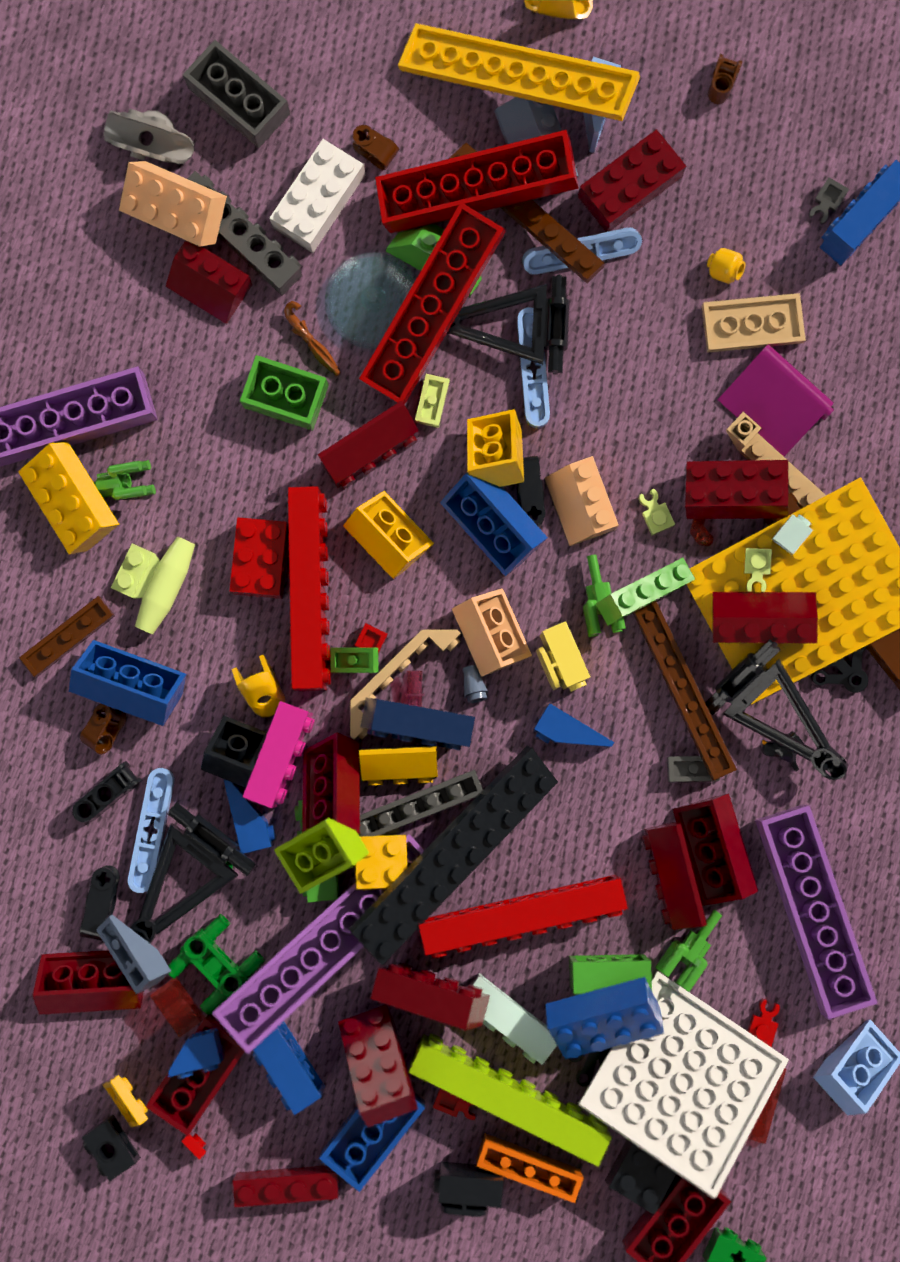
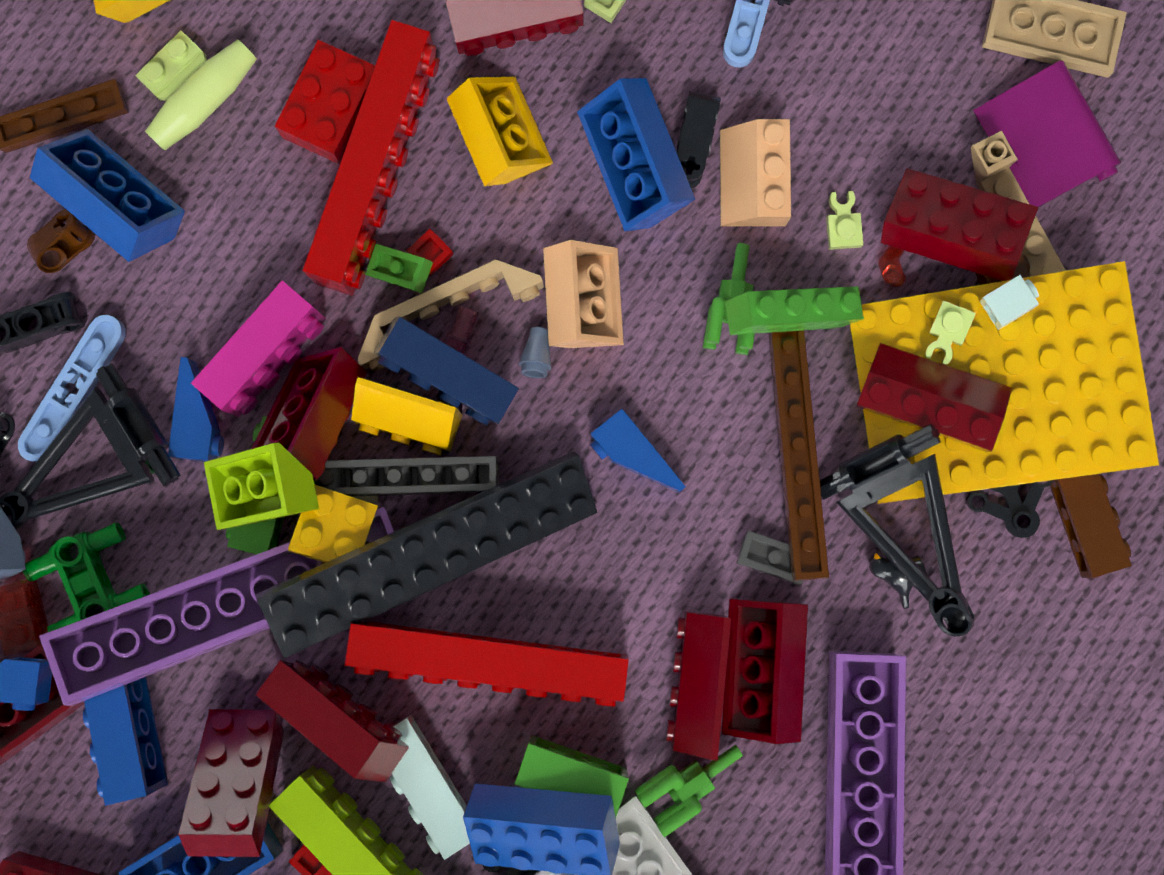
camera: 25 degrees right, 0 degrees up
(233, 751) = (201, 322): black brick -> none
(258, 686) = (268, 252): yellow piece -> none
(495, 448) = (671, 67): yellow slope -> none
(562, 658) = (659, 359): light yellow brick -> none

